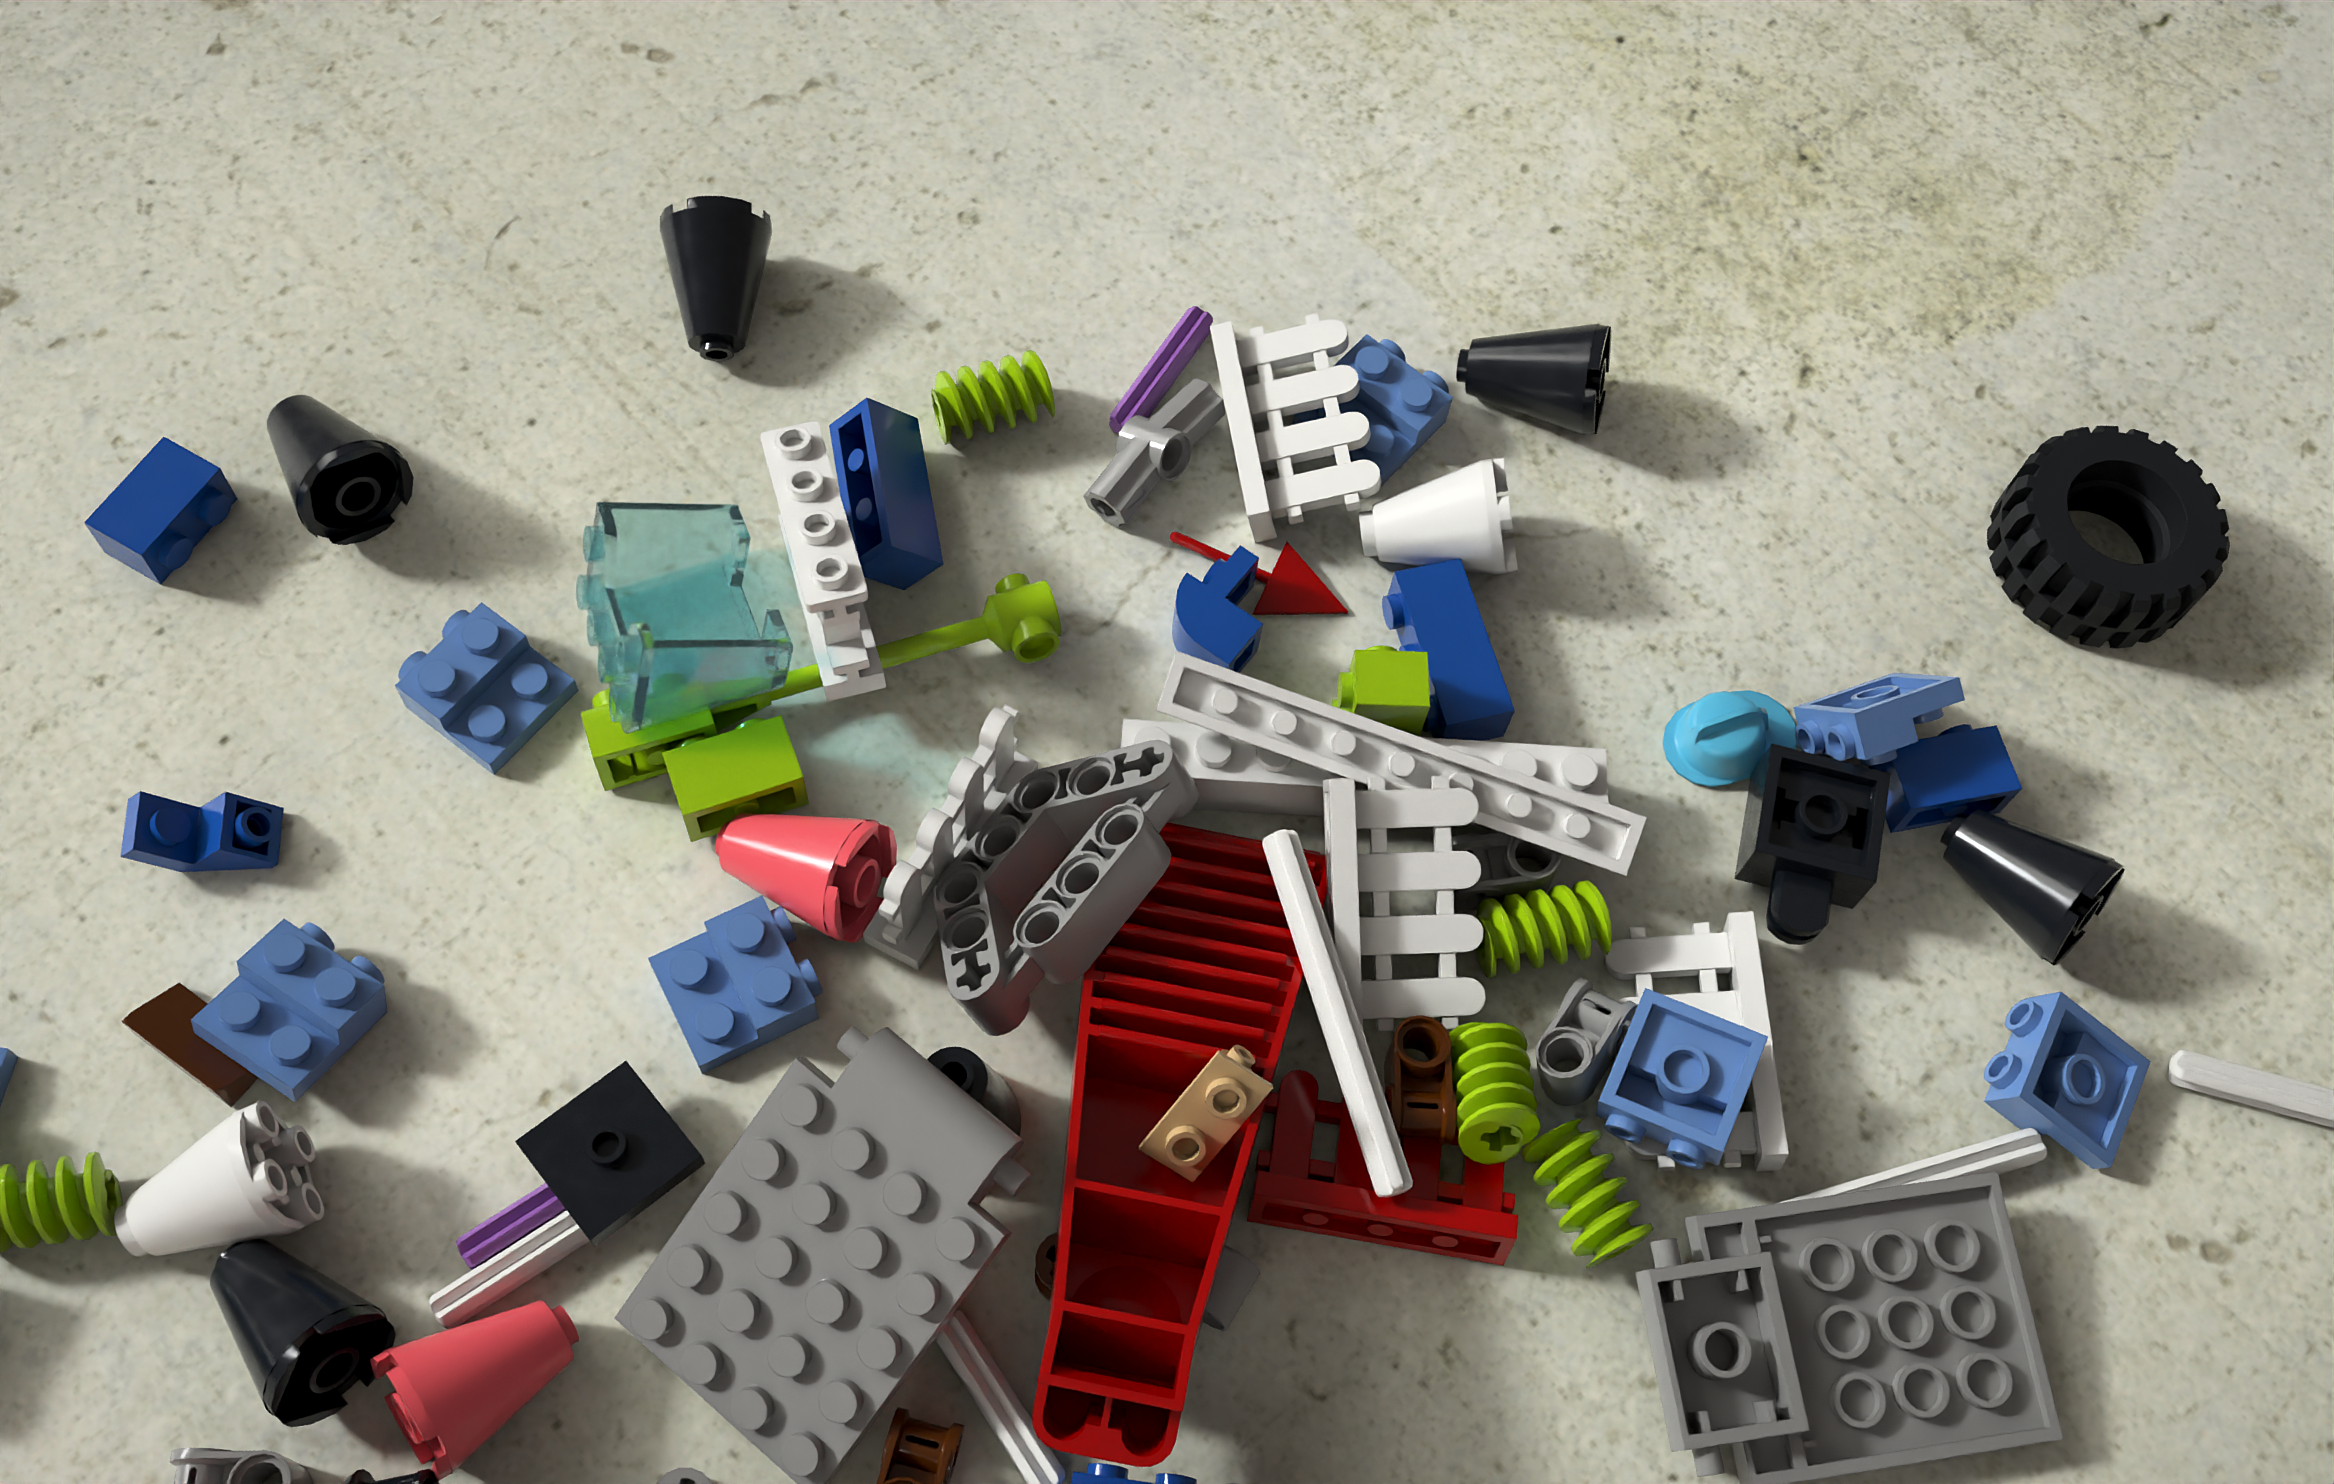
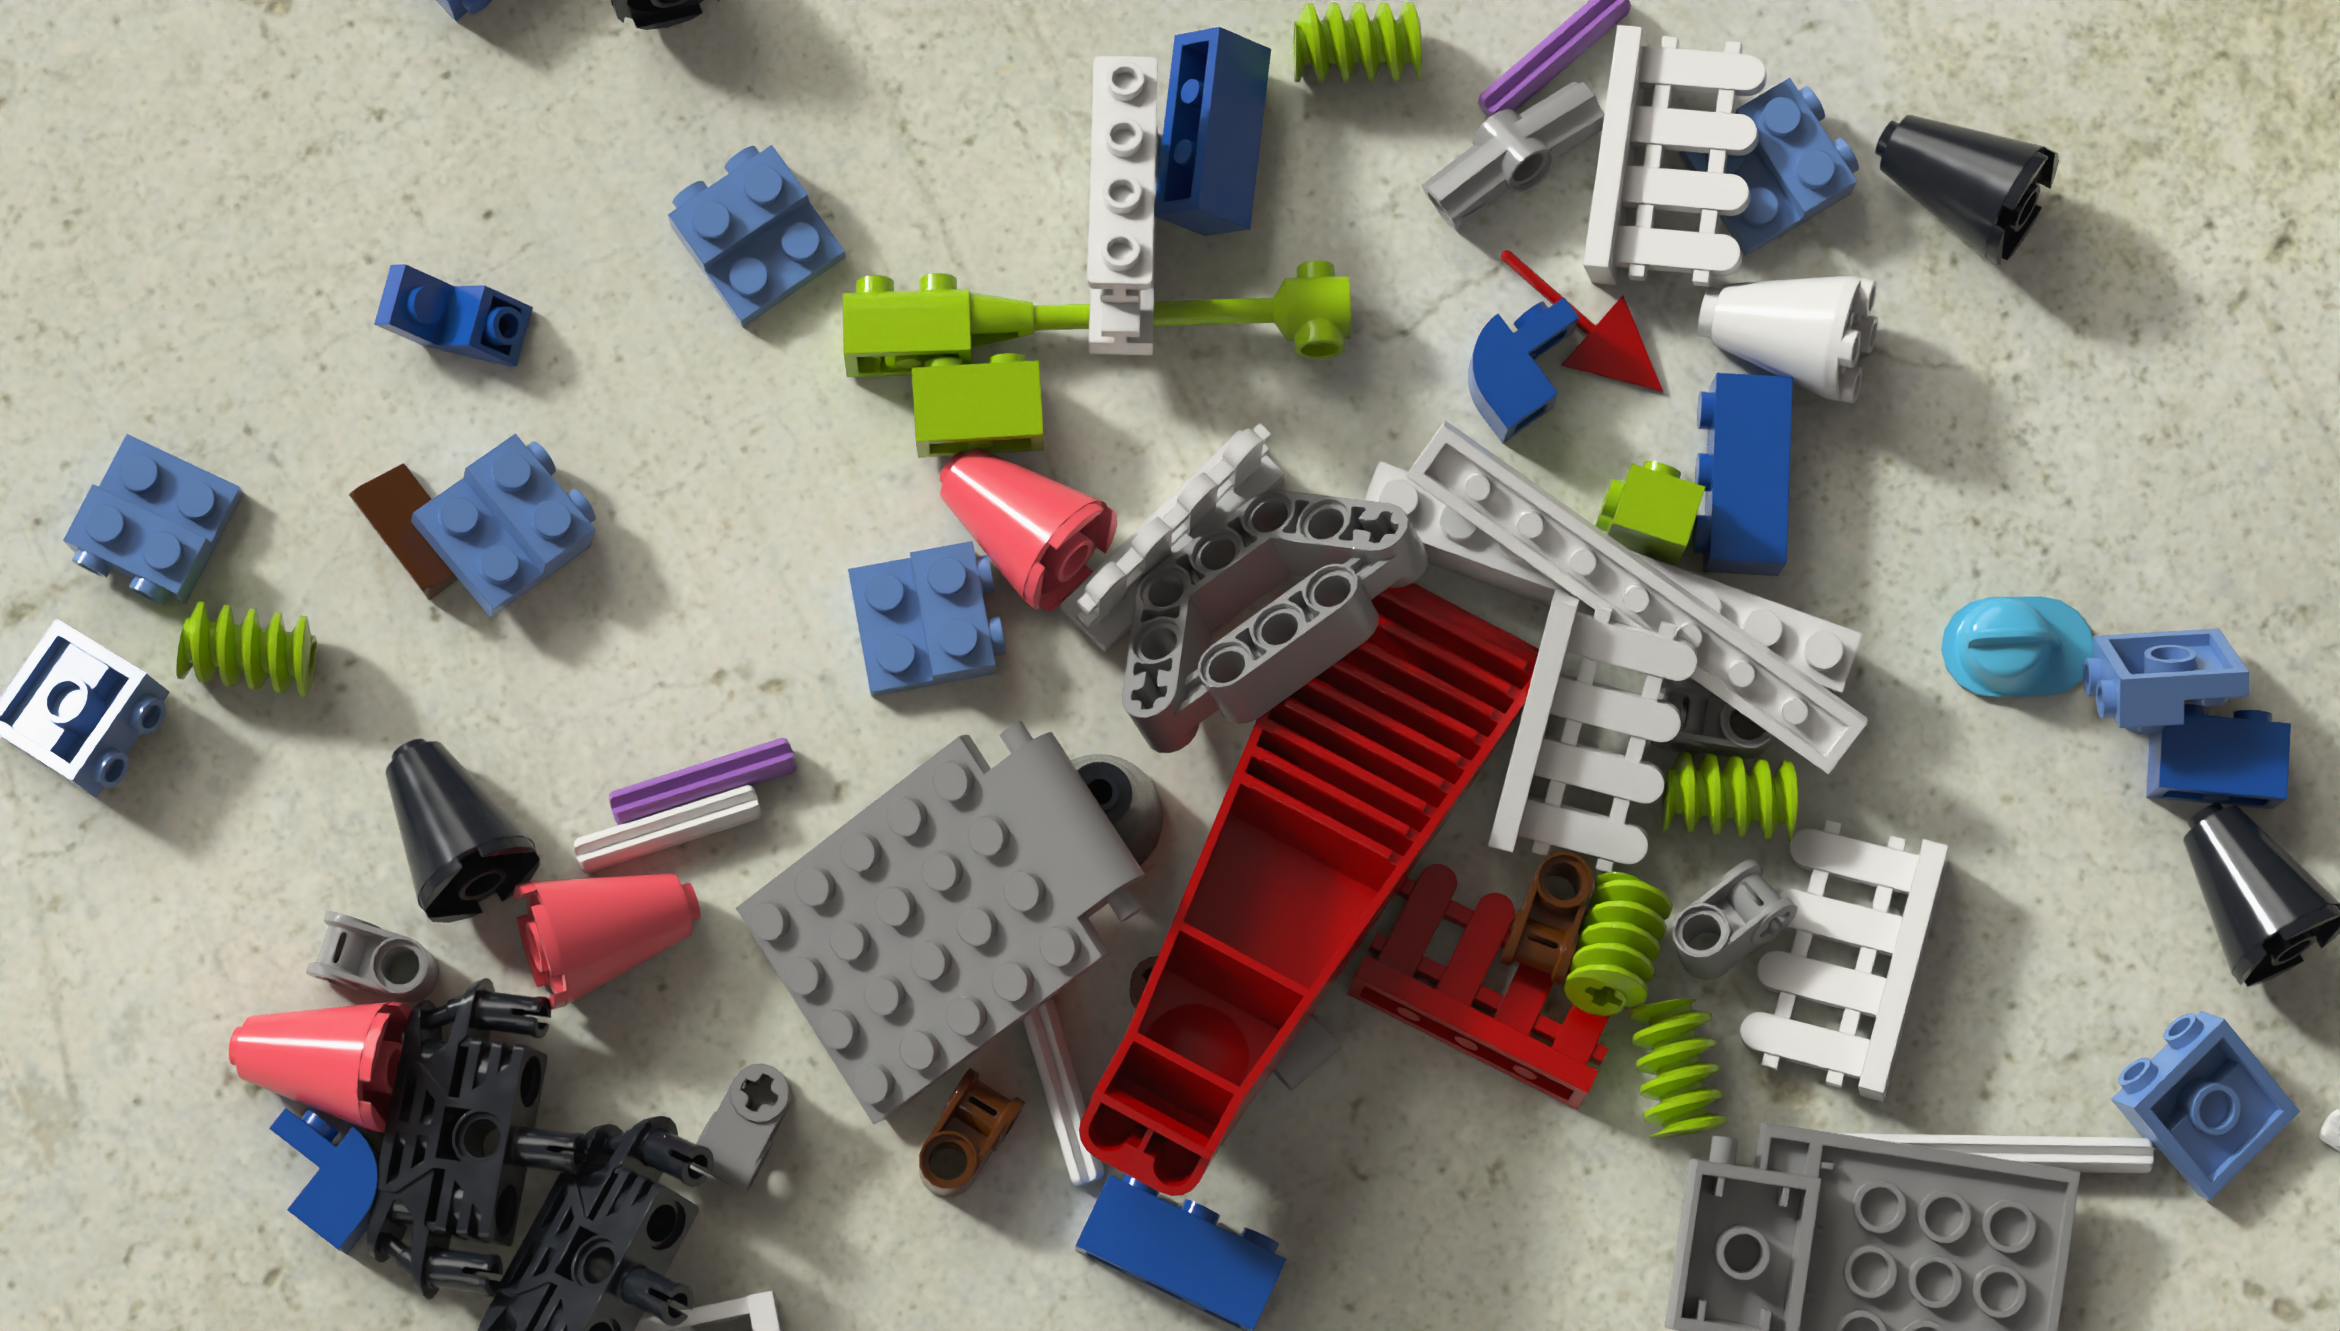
camera: 20 degrees right, 15 degrees up
(227, 1188) = (415, 686): white cone -> none
(610, 1153) = (768, 755): black plate -> none
(674, 612) = (962, 215): clear light blue windscreen -> none
(1207, 1113) = (1329, 892): tan hinge -> none
(1337, 1015) = (1488, 825): white axle -> none
(1680, 1079) = (1805, 990): medium blue plate -> none
(1811, 837) = (2043, 783): black brick -> none

